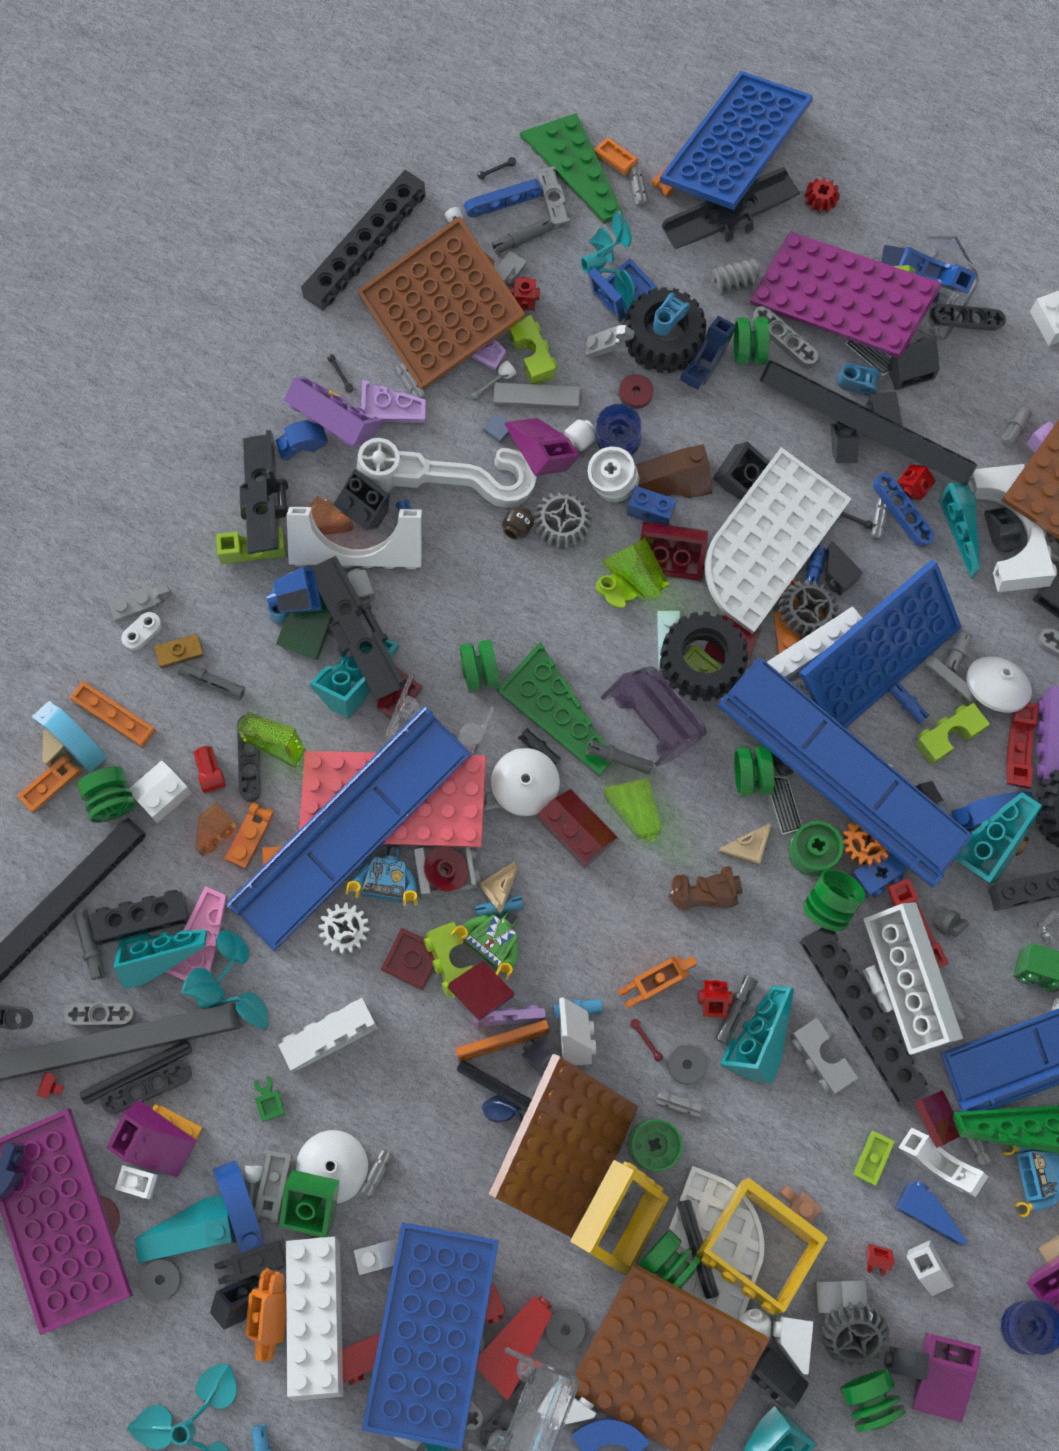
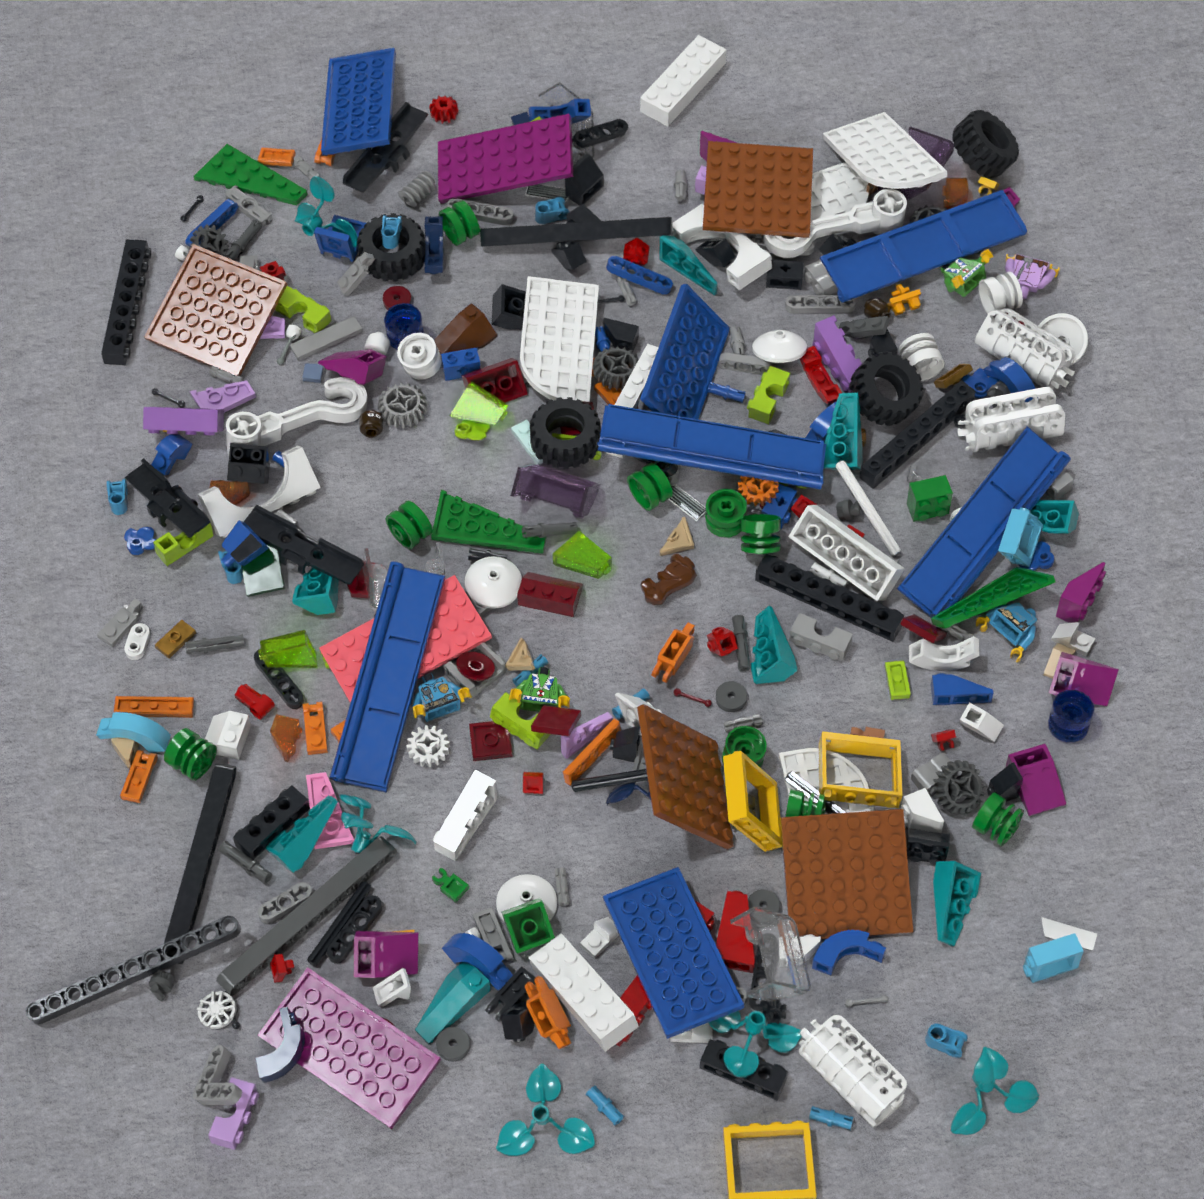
camera: 30 degrees left, 15 degrees down
(215, 516) = (139, 540): none -> blue plate
(222, 452) = (117, 496): none -> dark azure piece
(421, 1037) = (533, 782): none -> red tile
(484, 210) = (212, 236): none -> dark grey gear
(971, 937) = (868, 508): none -> white axle

